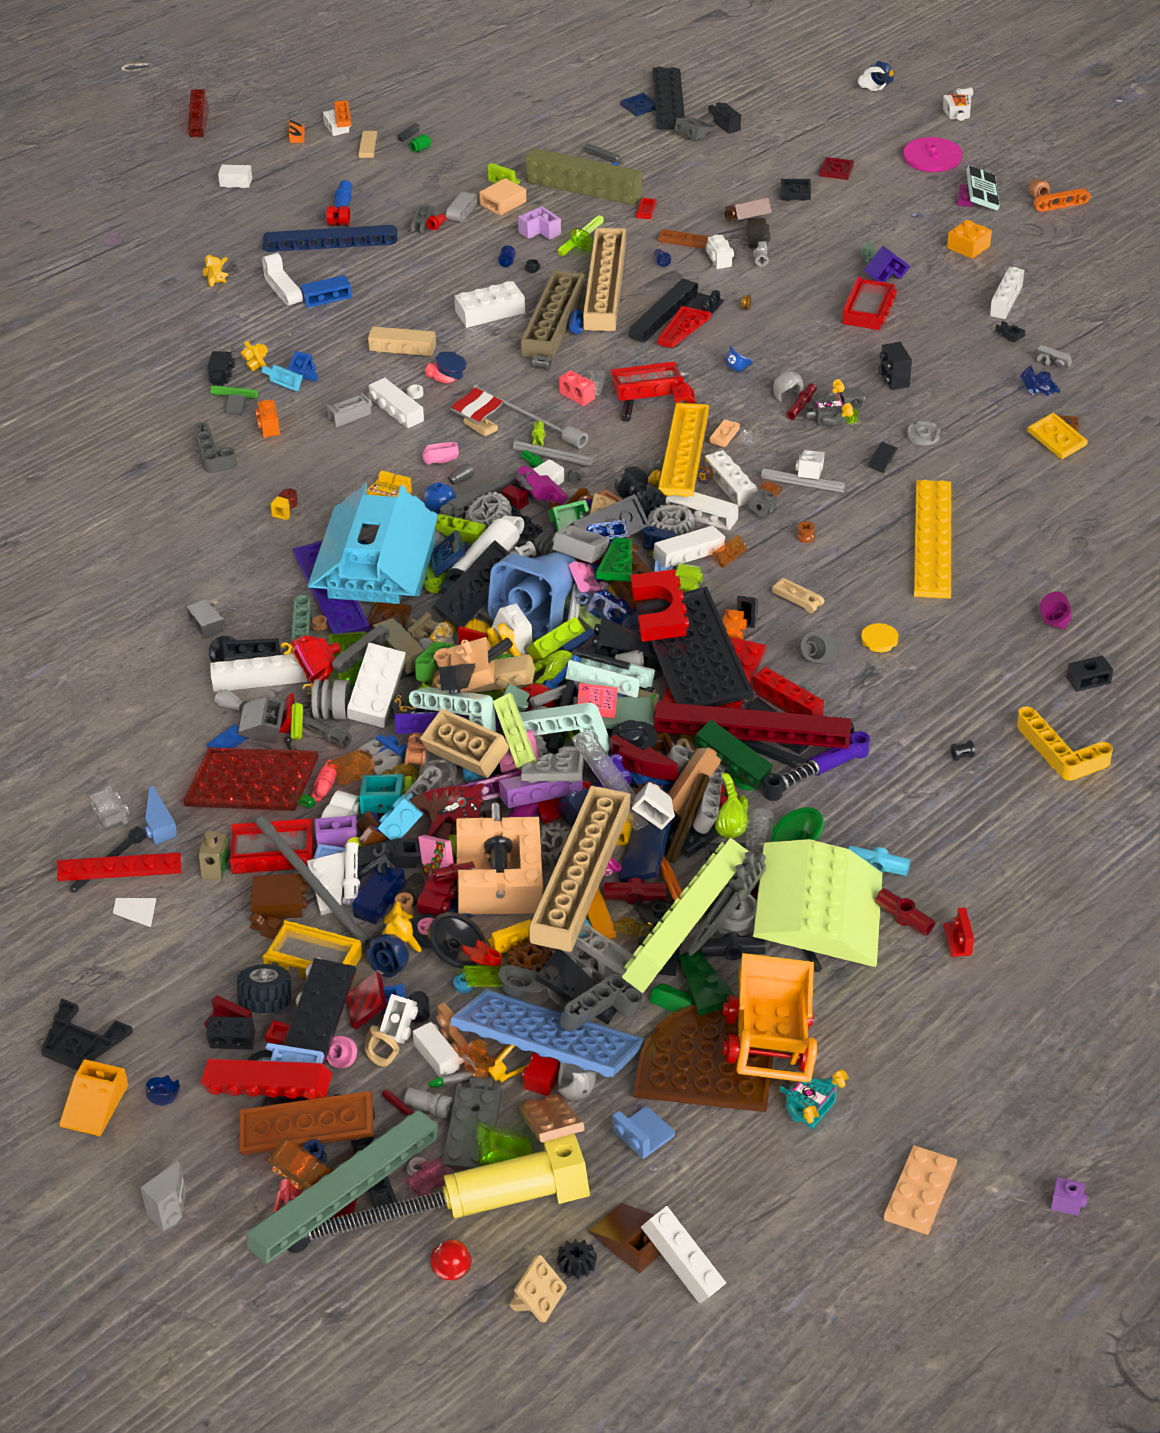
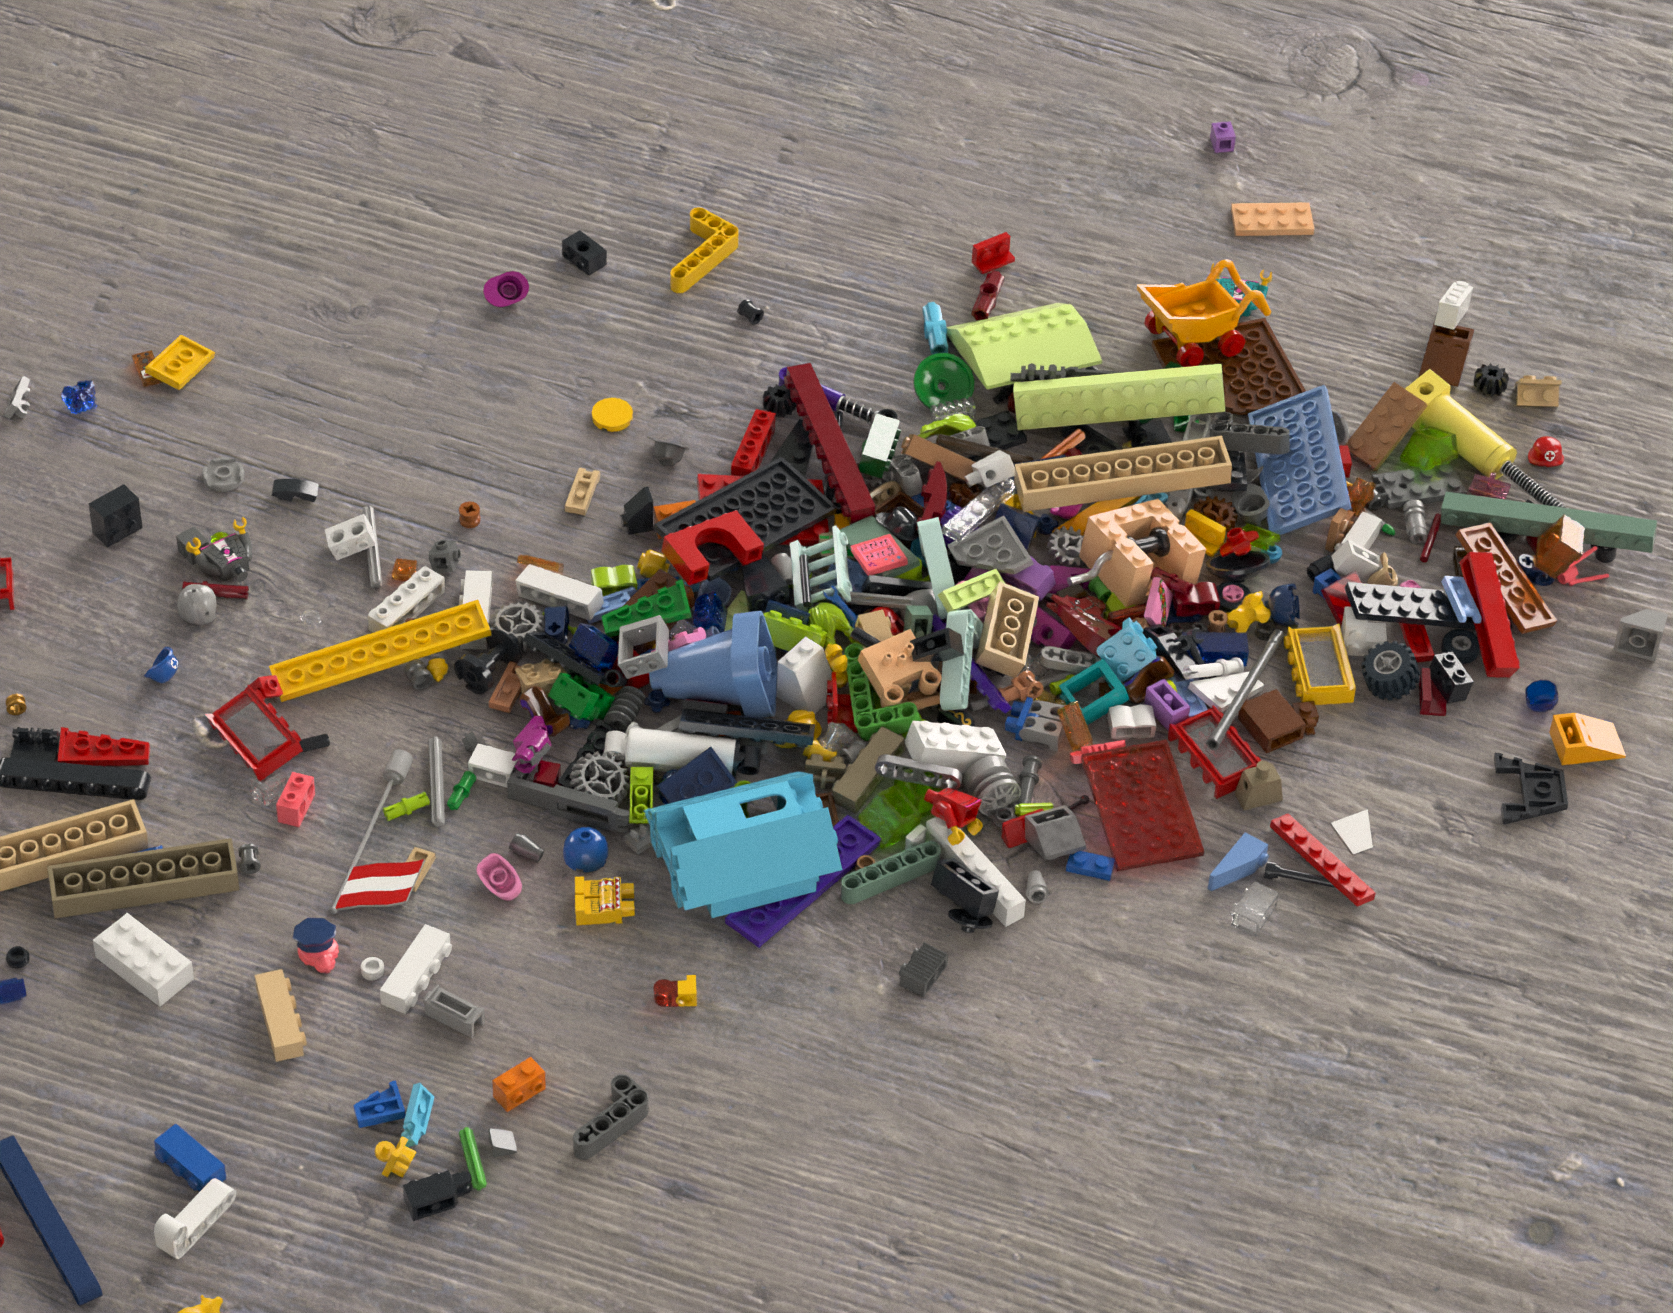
camera: 120 degrees left, 5 degrees up
(642, 1131) = (1343, 384): medium blue bracket -> none
(724, 433) = (315, 637): light nougat plate -> none
(933, 539) = (418, 418): yellow plate -> none

